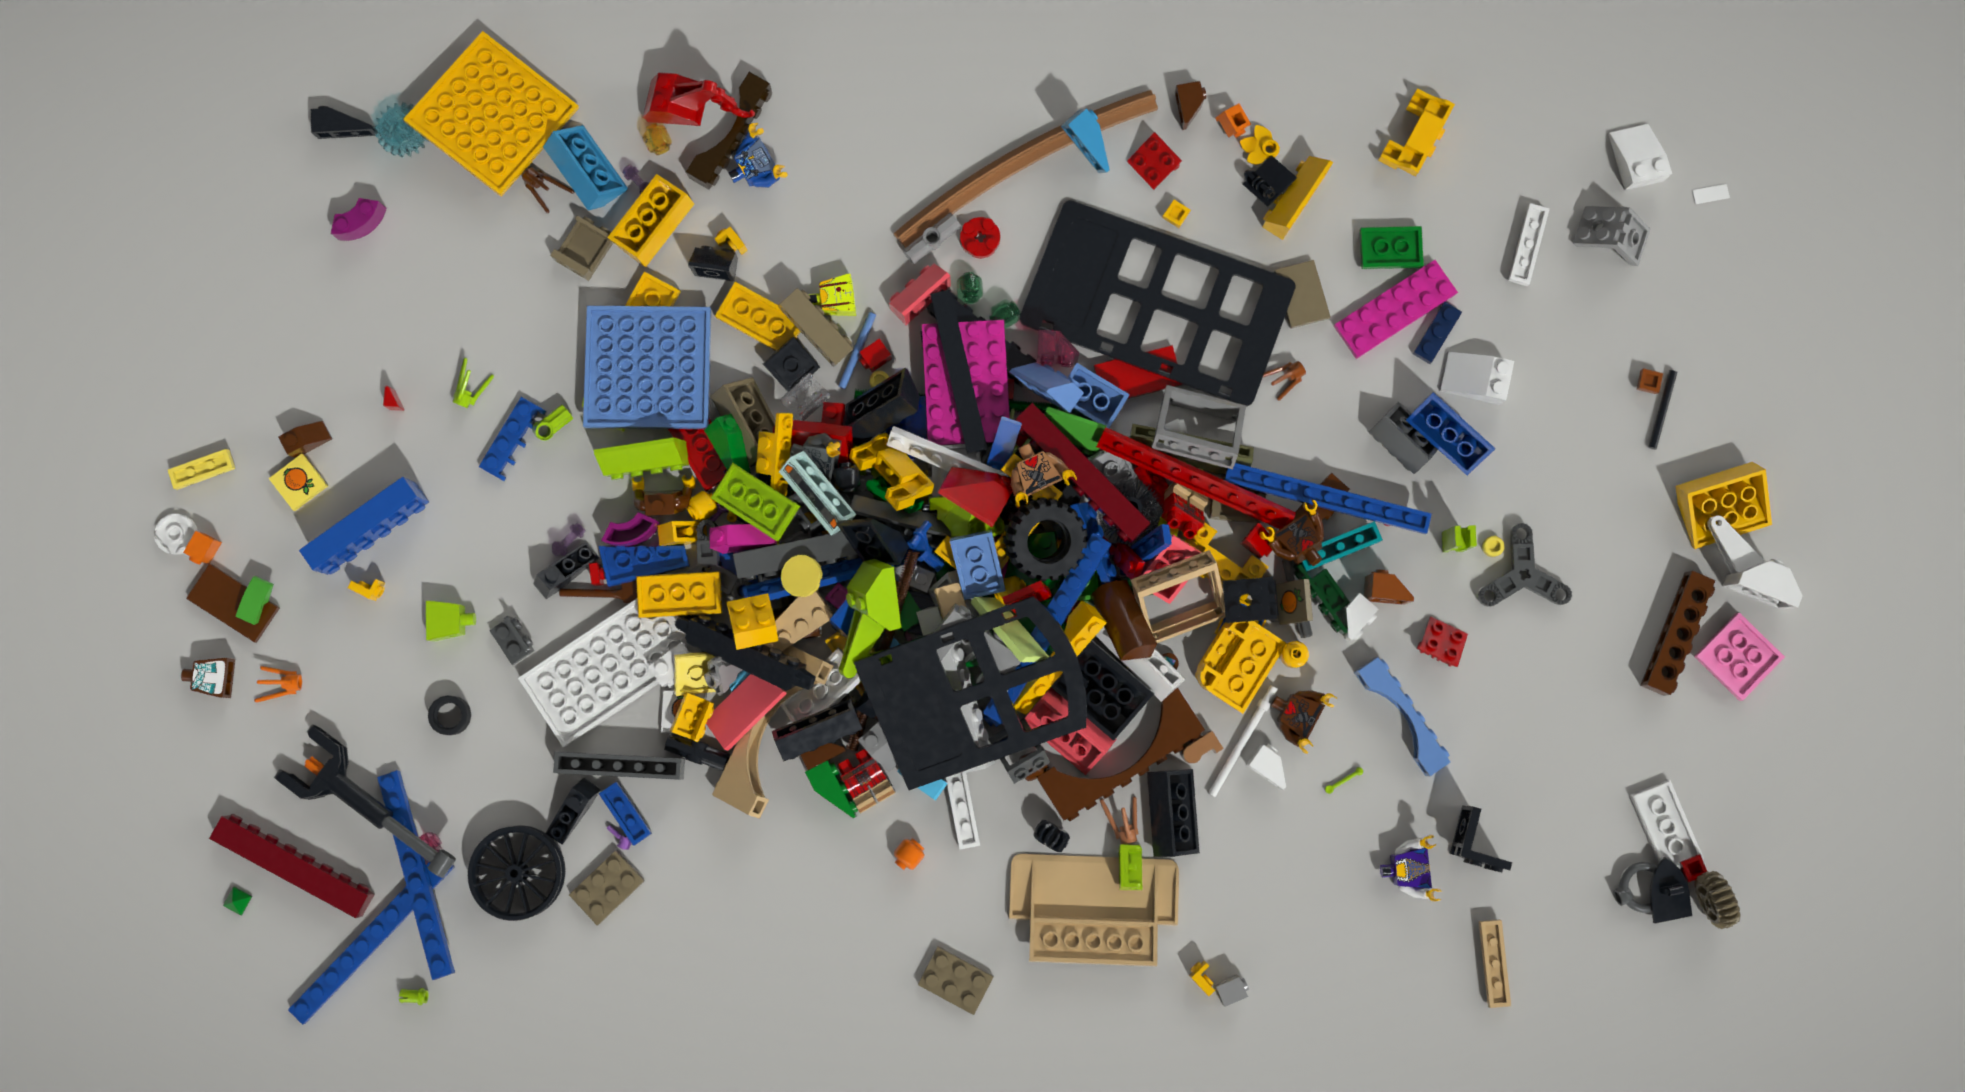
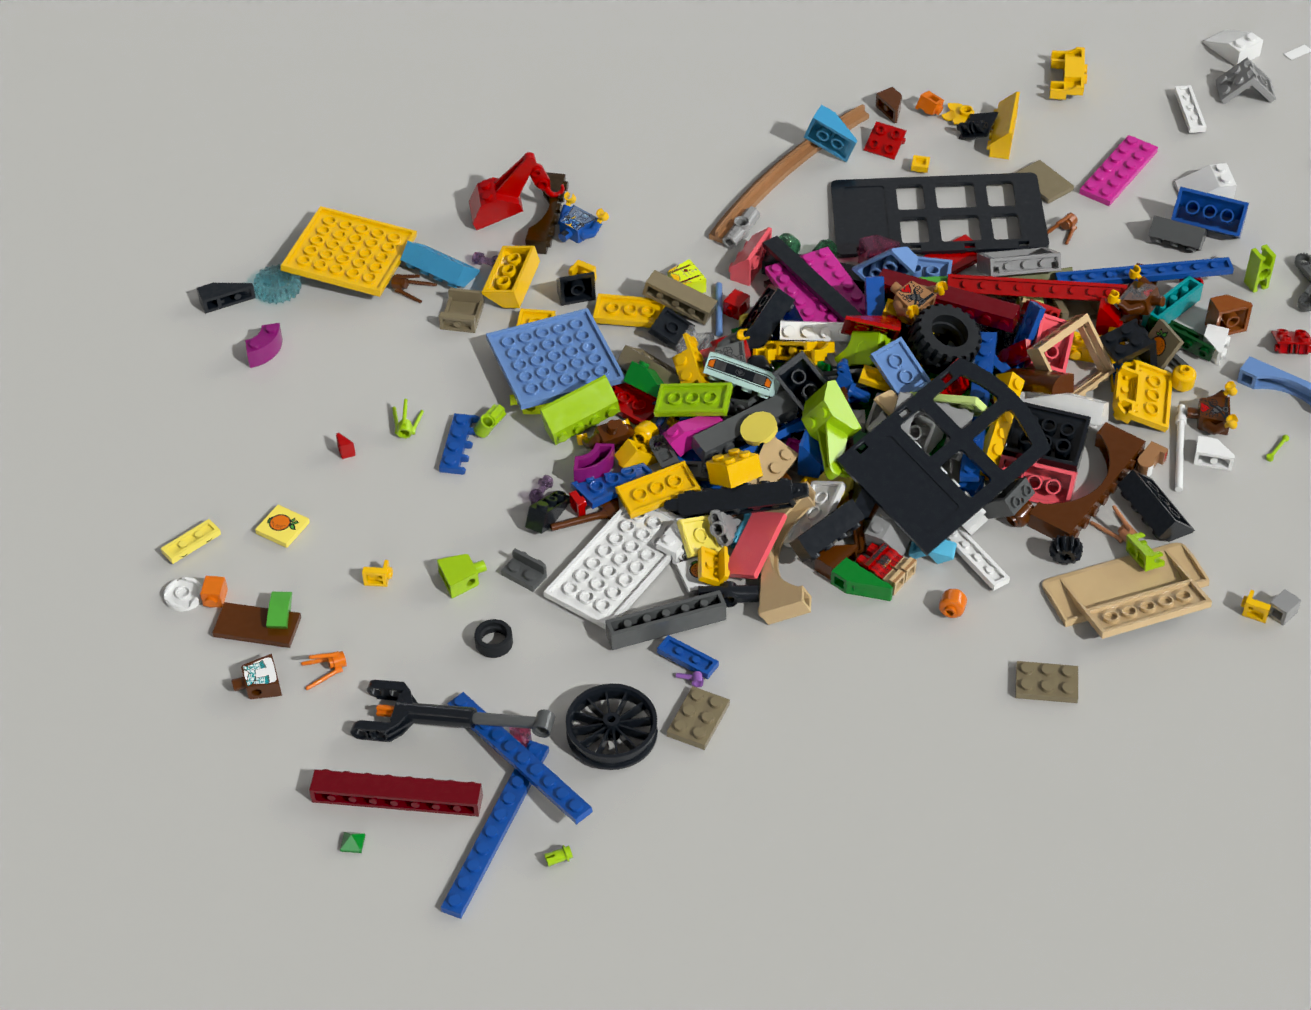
camera: 20 degrees left, 35 degrees down
(305, 438) = (275, 493): reddish brown slope -> none
(364, 526) = (358, 527): blue brick -> none
(572, 810) = (640, 664): black slope -> none
(657, 139) = (490, 232): clear yellow head -> none
(970, 231) = (771, 216): red plate -> none
(1391, 247) = (1092, 137): green plate -> none
(1437, 332) = (1158, 174): dark blue plate -> none
(1493, 546) = (1288, 276): light yellow tile -> none

